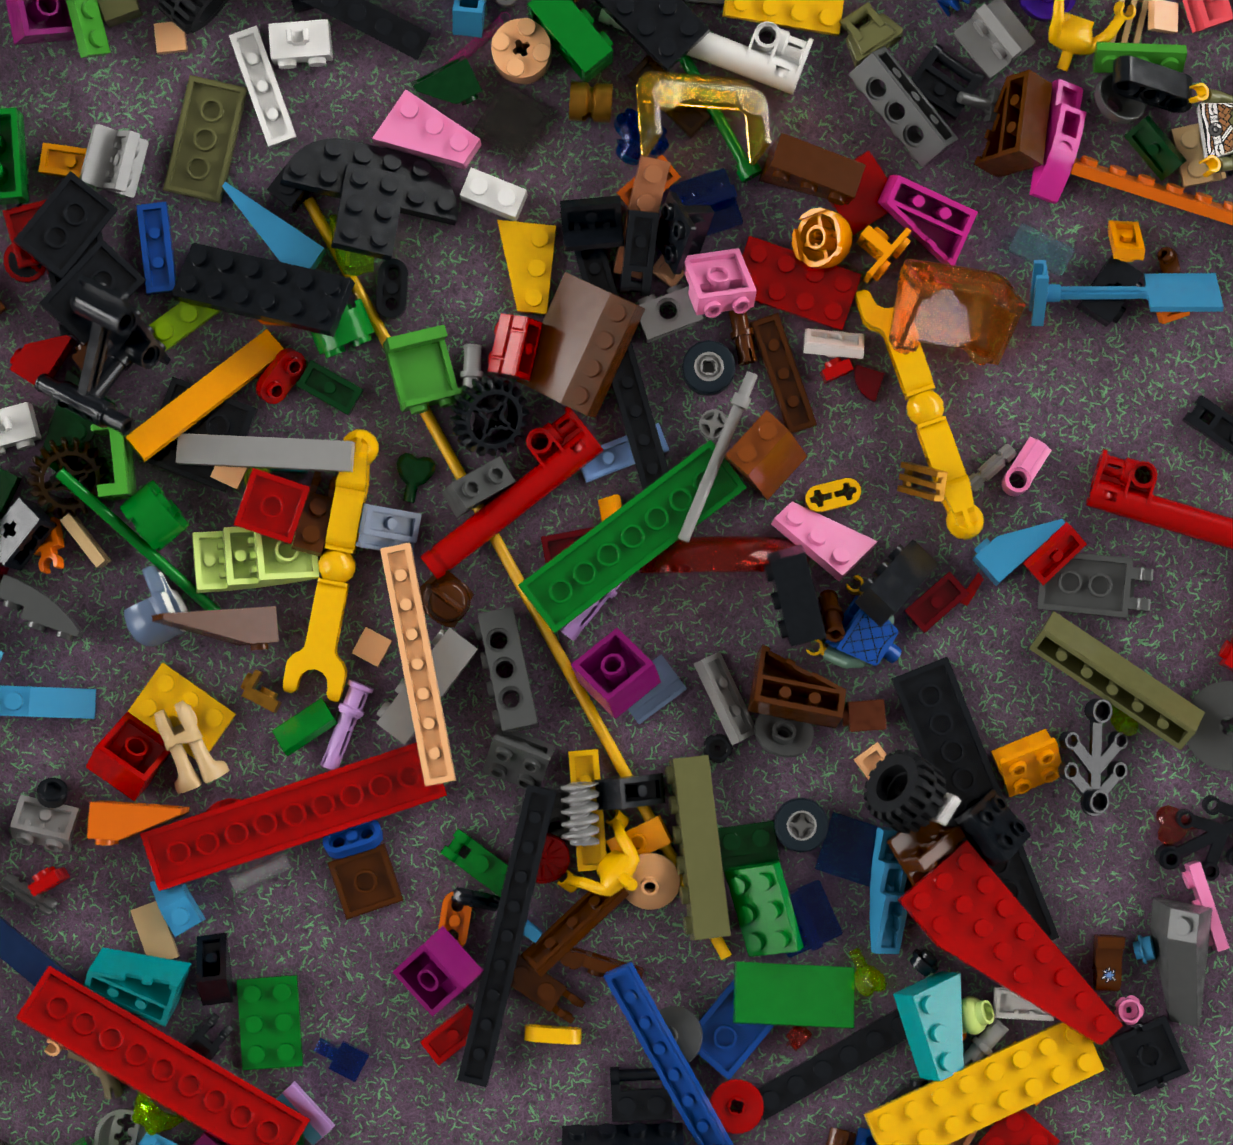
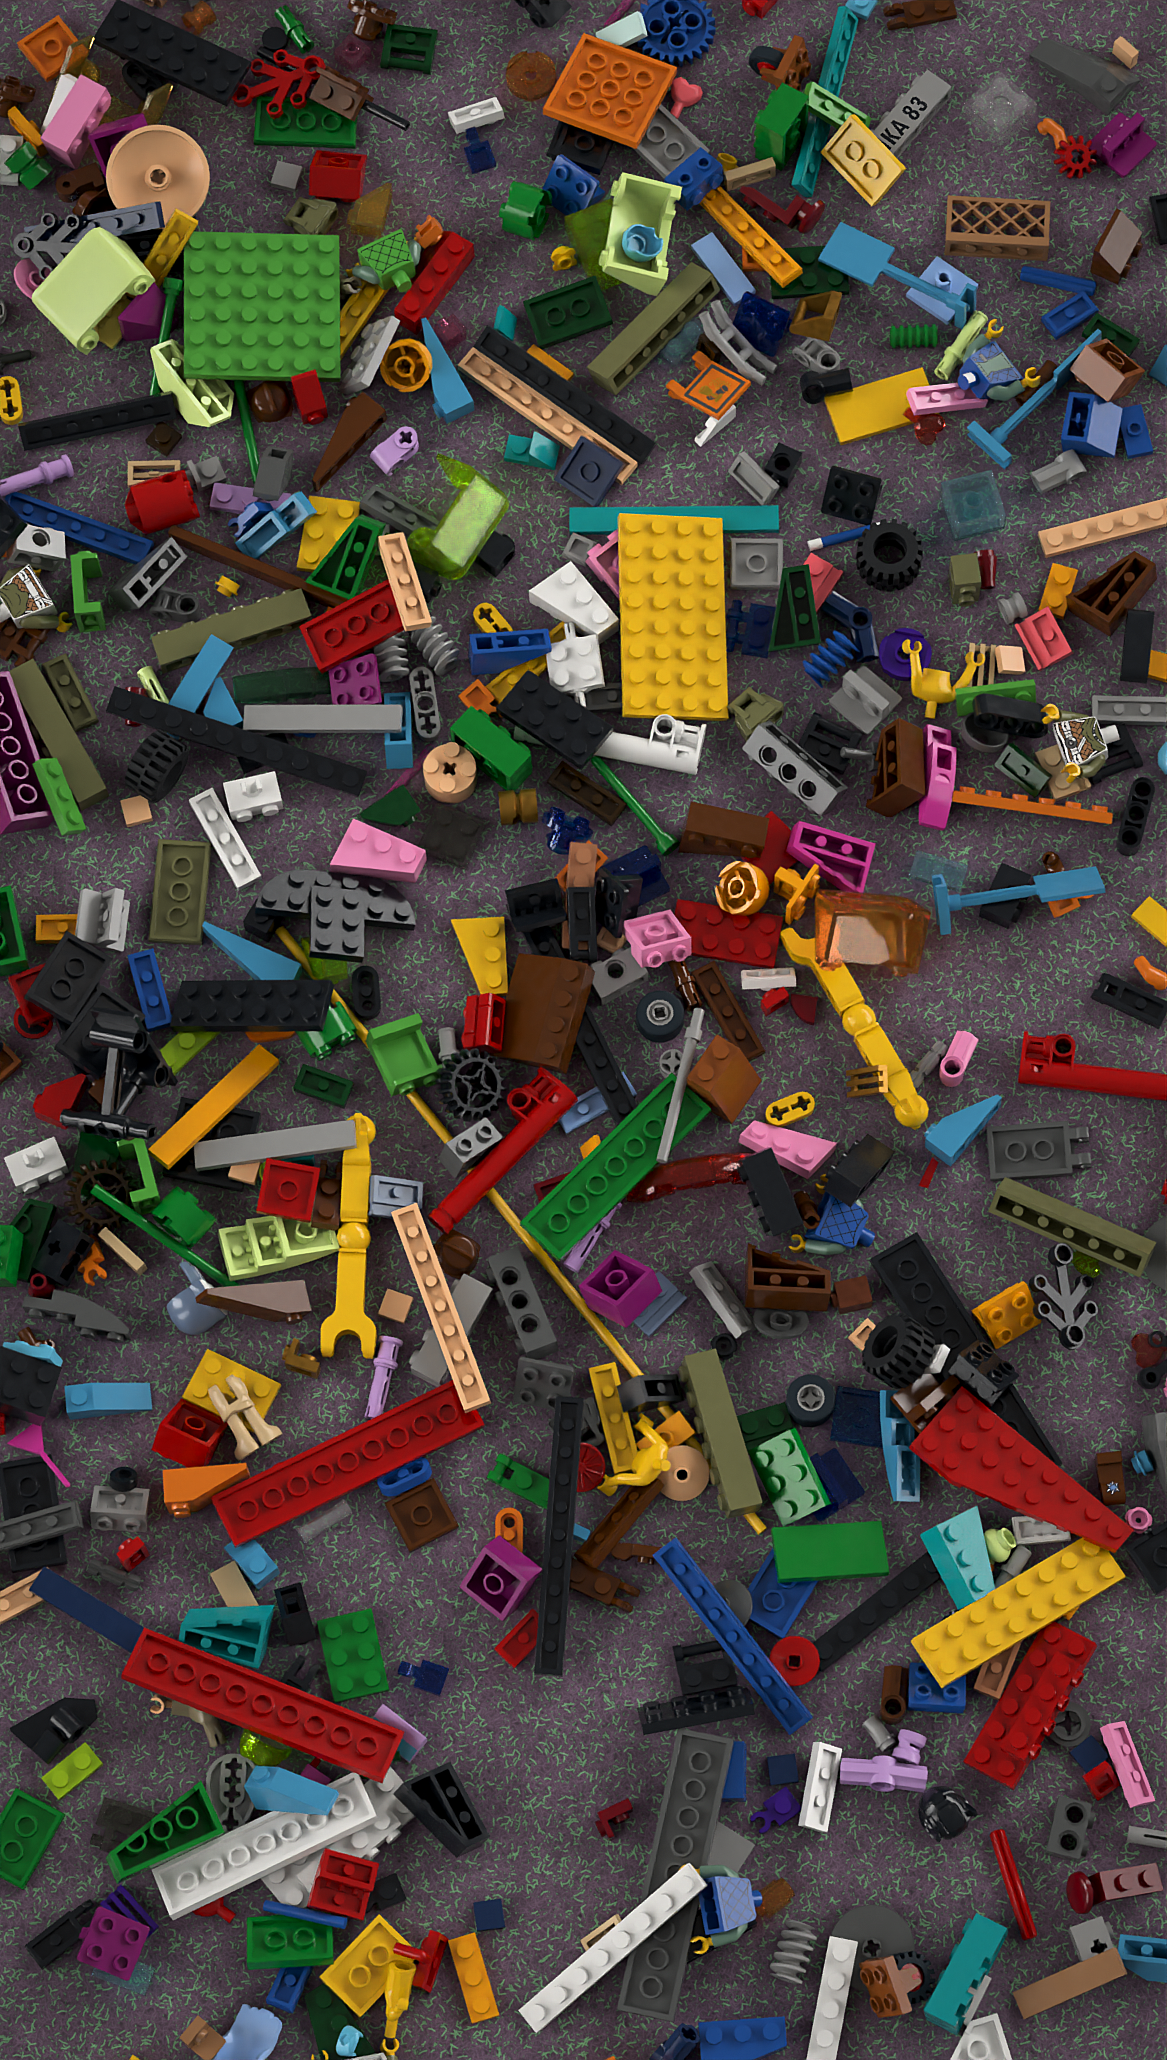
camera: 10 degrees left, 15 degrees down
(280, 375) = (277, 1080): red plate -> none
(304, 727) = (345, 1385): green tile -> none
(414, 473) = (410, 1149): dark green rock -> none
(475, 899) = (525, 1510): black axle -> none
(493, 194) = (444, 897): white brick -> none
(553, 1034) = (615, 1623): yellow beam -> none
(580, 813) = (606, 1415): light grey piece -> none
(667, 90) = (581, 783): clear yellow windscreen -> none
(798, 1037) = (840, 1591): clear red plate -> none
(866, 976) = (893, 1527): clear neon green rock -> none
(924, 962) = (943, 1505): black plate -> none
(936, 602) = (898, 1187): dark red plate -> none
(1055, 553) = (996, 1125): red plate -> none
(1126, 240) = (1011, 850): light orange plate -> none

